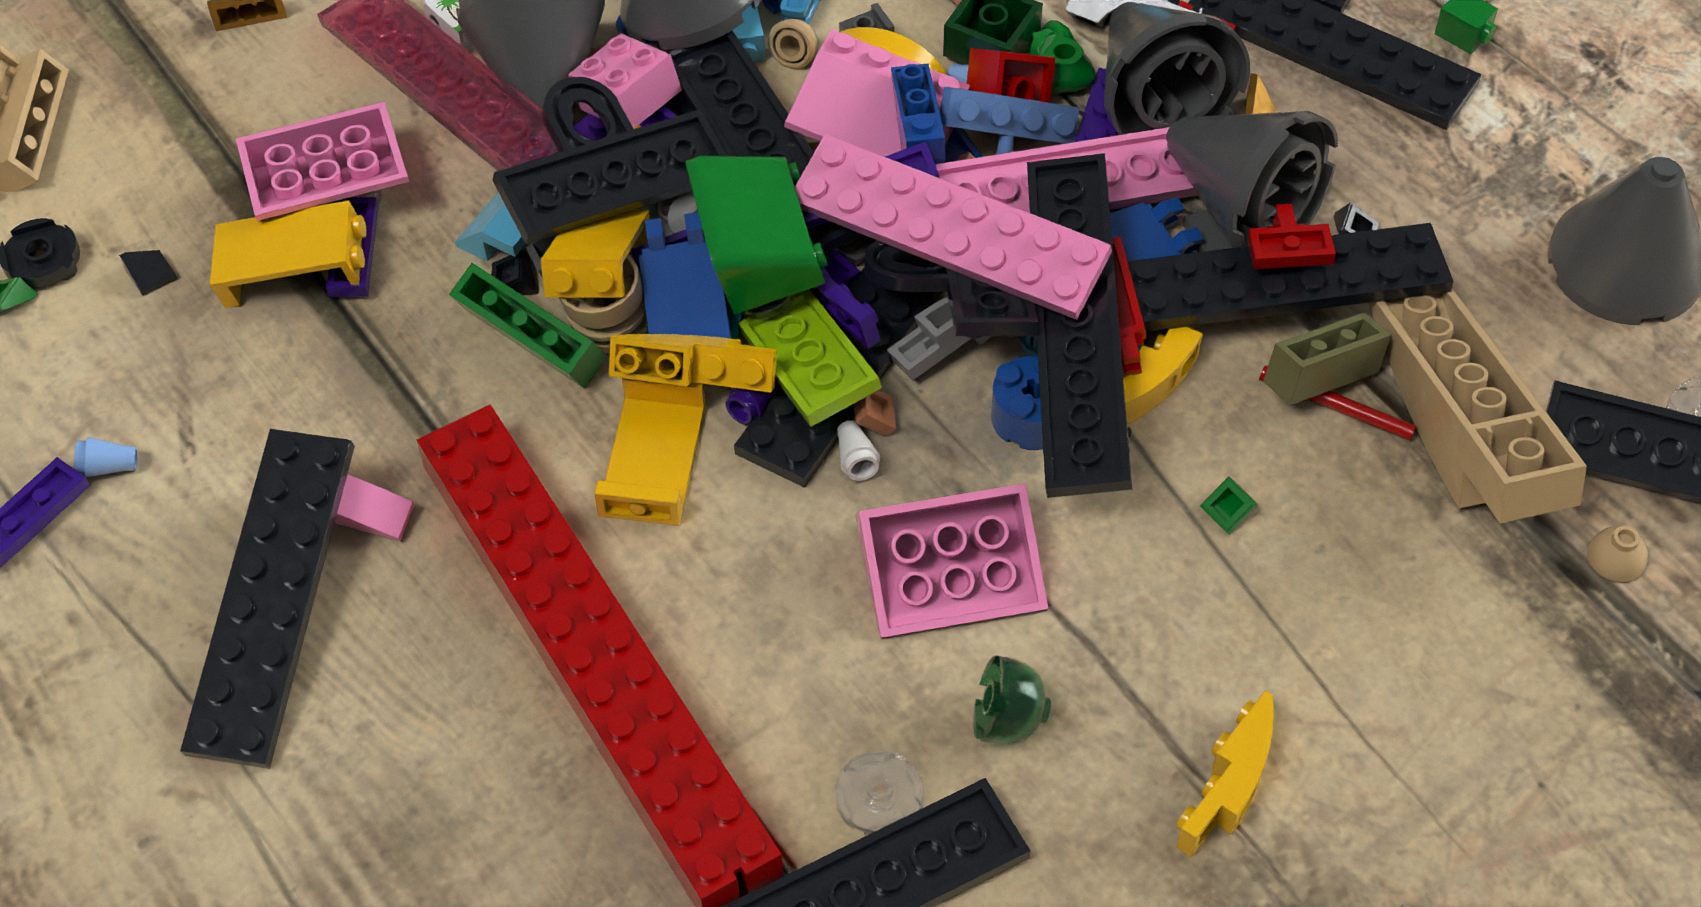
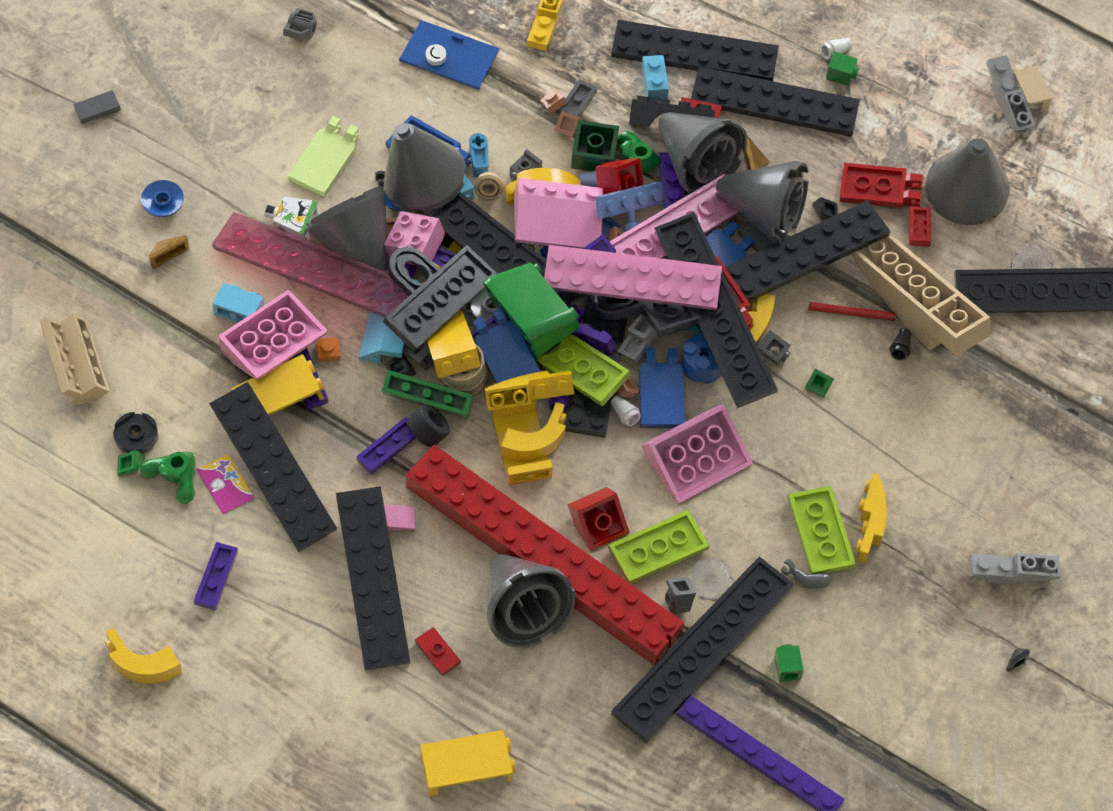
camera: 25 degrees left, 5 degrees up
(64, 324) = (175, 468): none -> green head
(103, 457) = (239, 534): light blue cone -> none
(136, 374) = (225, 483): none -> sticker
(147, 269) = (200, 424): black slope -> none
(212, 365) = (273, 466): none -> black plate
(299, 100) = (236, 303): none -> medium azure brick
(324, 763) = (437, 651): none -> red plate
(413, 216) = (328, 349): none -> orange plate
(425, 389) = (386, 447): none -> dark purple plate
(500, 373) = (428, 425): none -> black tyre
(503, 723) = (526, 600): none -> dark grey cone
(675, 459) = (535, 445): none -> yellow arch
(721, 619) = (599, 518): none -> red slope
(800, 800) = (679, 595): none -> dark grey brick
(807, 703) = (658, 547): none -> lime plate
(918, 109) = (586, 215): blue slope -> none
(936, 437) = (661, 391): none -> blue tile
(1011, 702) = (756, 516): clear green cylinder -> none
(1061, 853) = (807, 580): none -> dark grey arm
(1125, 770) = (821, 530): none -> lime plate
(1165, 408) = (772, 340): none -> dark grey brick
(1290, 243) = (805, 234): red hinge -> none
(1326, 358) = (841, 291): olive brick -> none
(1406, 485) = (901, 346): none -> black cone
(1469, 215) = (880, 185): none -> red tile
(1515, 297) = (919, 226): none -> red plate
(1618, 554) = (1011, 351): tan brick -> none

